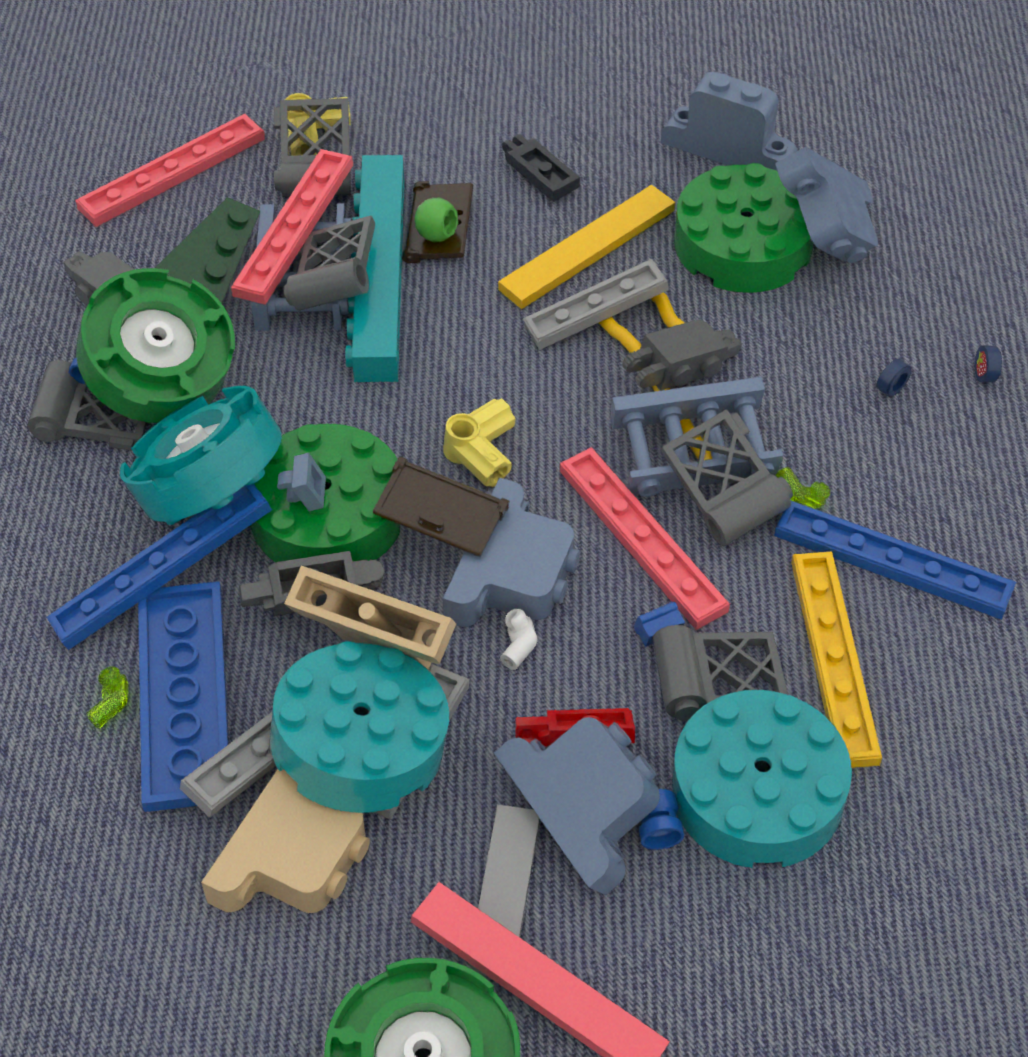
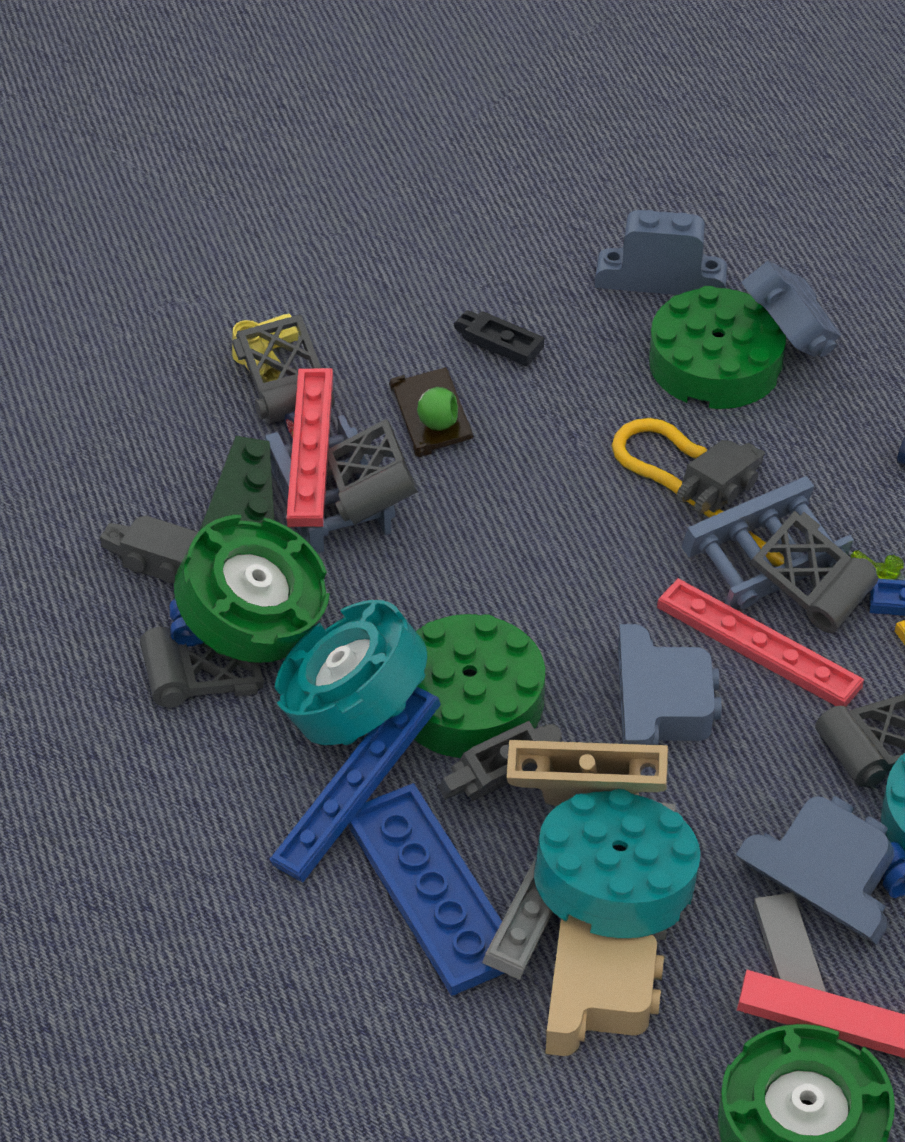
camera: 20 degrees left, 5 degrees down
(114, 697) = (368, 908): clear neon green arm -> none
(169, 170) = (144, 425): coral tile -> none
(304, 482) = (460, 673): sand blue tile -> none
(377, 312) = (426, 515): teal brick -> none
(440, 502) = (563, 657): dark brown door -> none
(469, 439) = (568, 599): light yellow piece -> none
(522, 638) = (701, 756): white arm -> none
(557, 722) = (776, 818): red hinge -> none
(586, 246) = (579, 400): yellow tile -> none
(595, 304) = (618, 450): light grey tile -> none
(652, 621) = (809, 712): blue piece -> none

